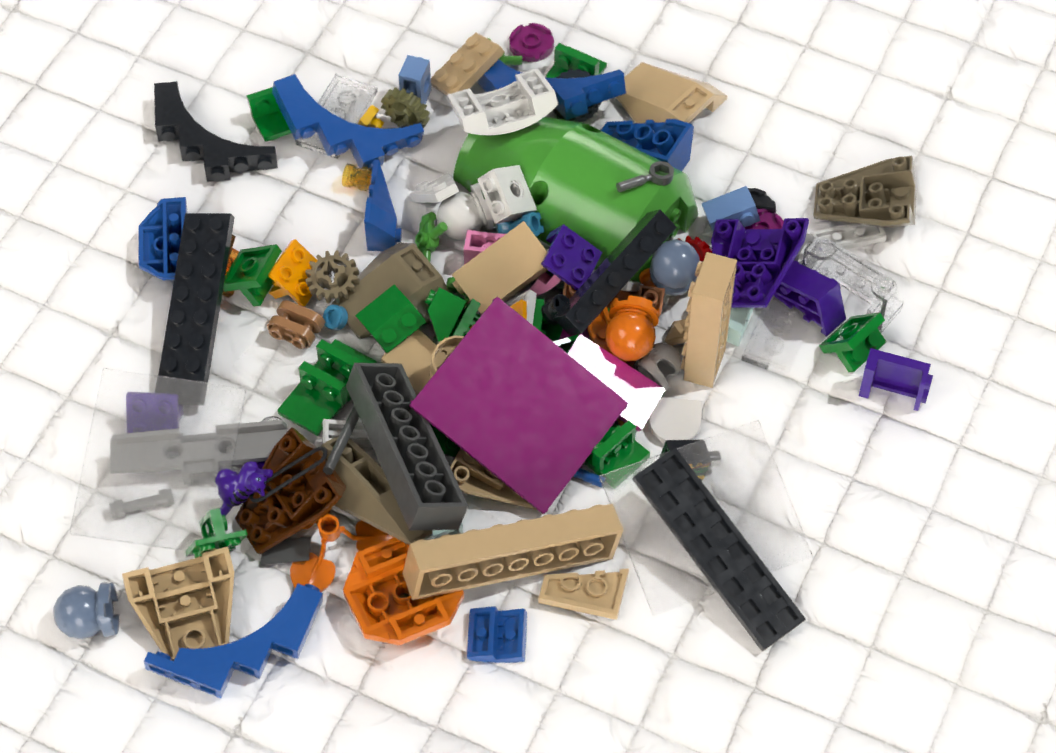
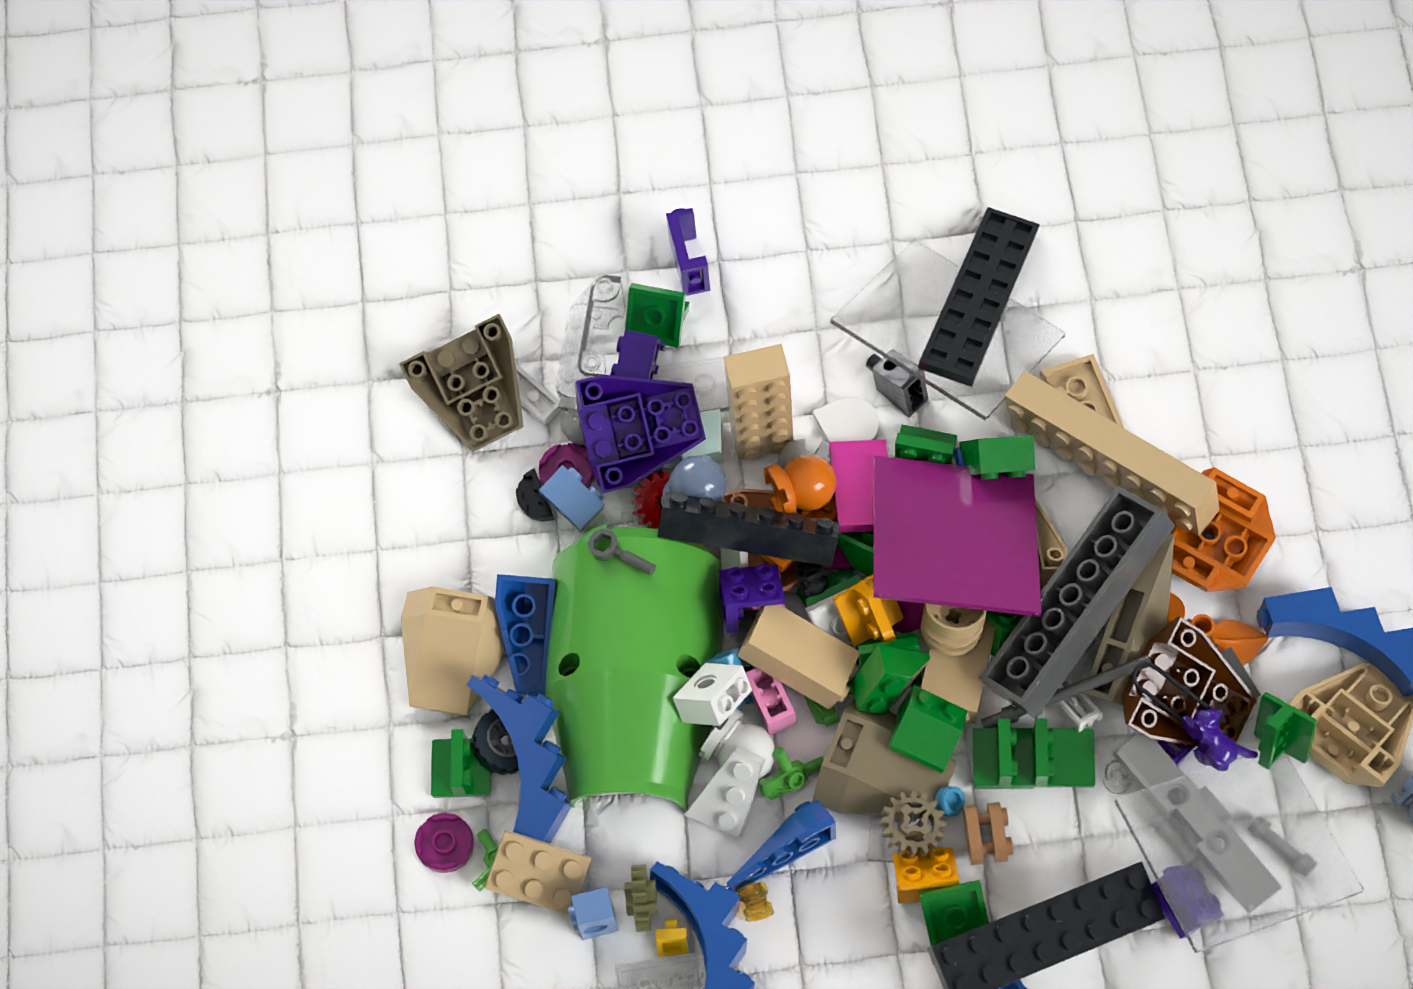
camera: 115 degrees left, 10 degrees up
(497, 635) = (1183, 440): blue slope -> none
(505, 108) = (599, 762): white slope -> none
(571, 484) = (999, 455): none -> green slope
(676, 333) = (746, 471): tan tile -> none

